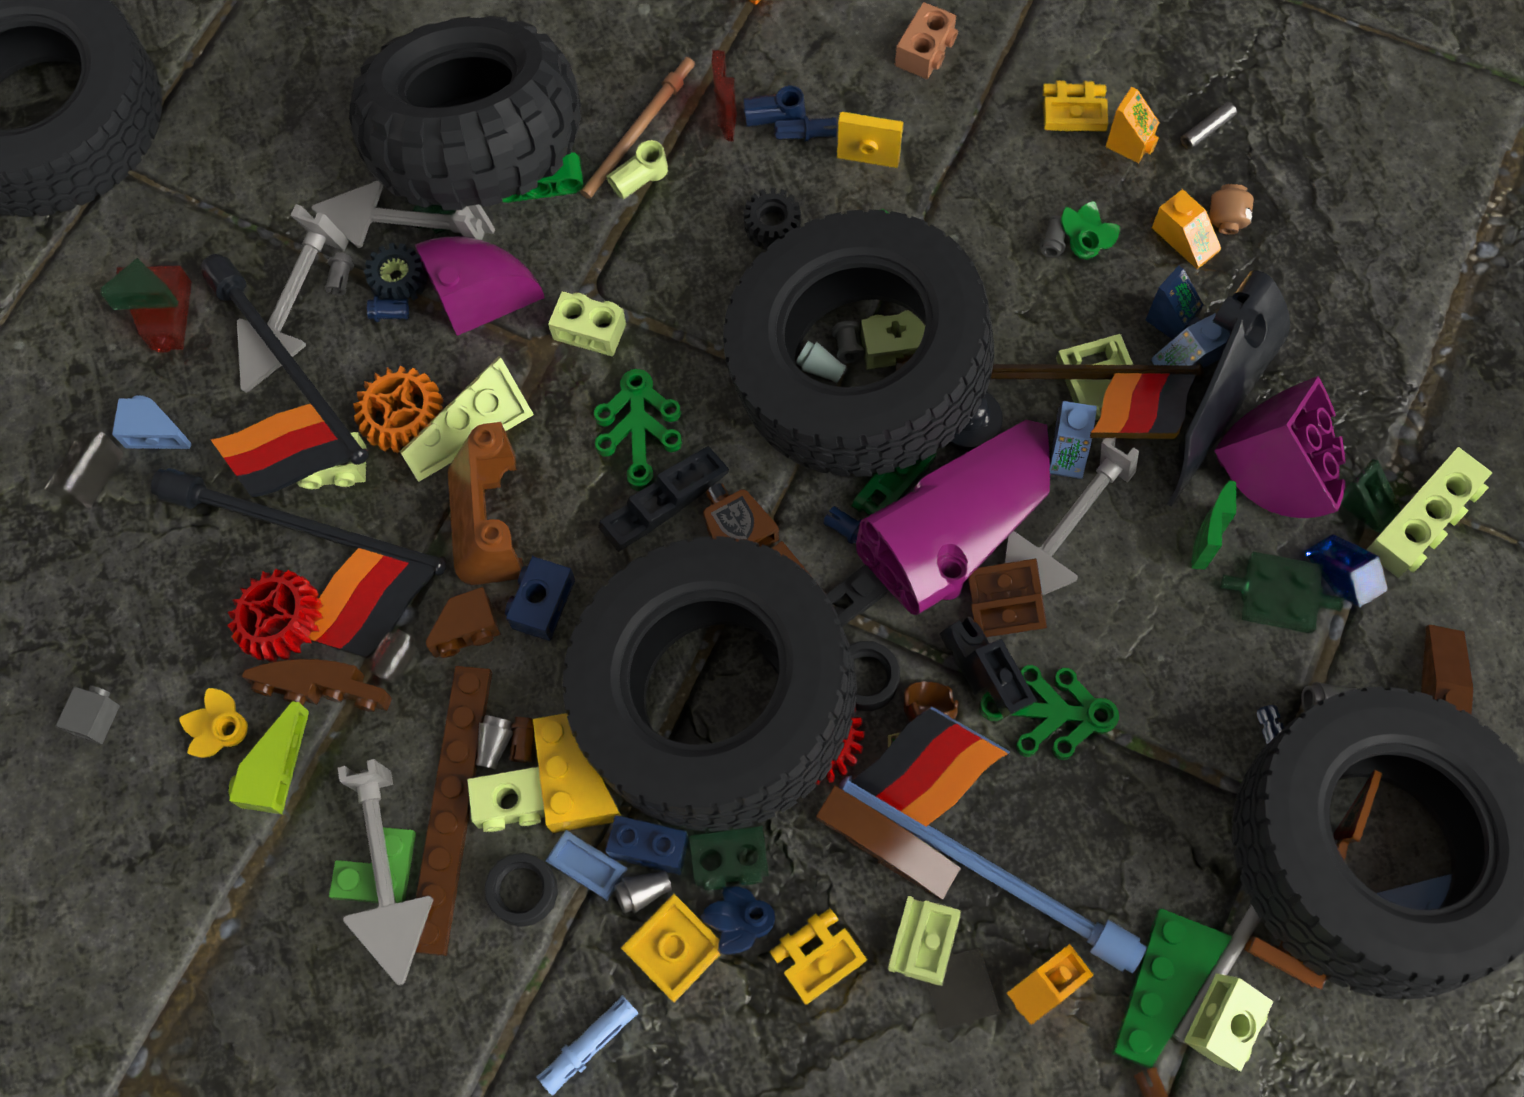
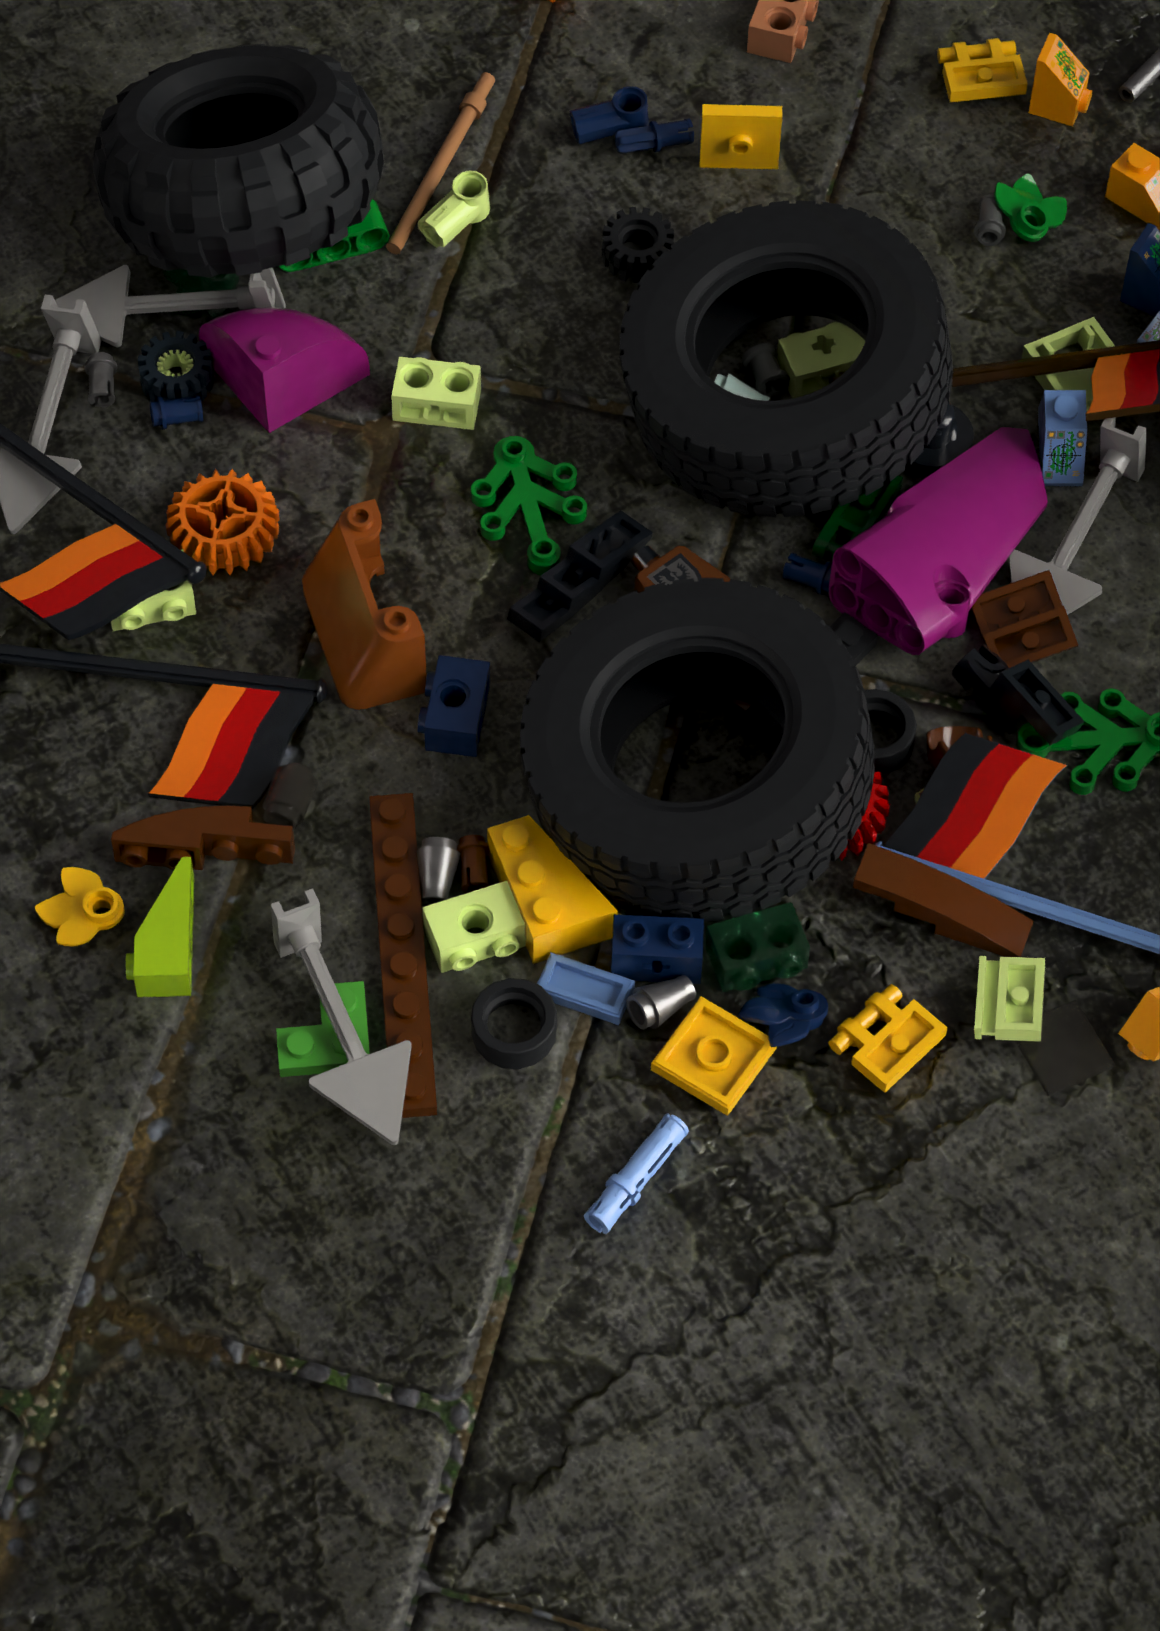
camera: 15 degrees left, 10 degrees down
(266, 617) = (140, 780): red gear -> none
(462, 623) = (369, 746): reddish brown slope -> none
(485, 400) = (308, 519): yellowish green wing -> none
(724, 95) = (546, 109): clear red slope -> none

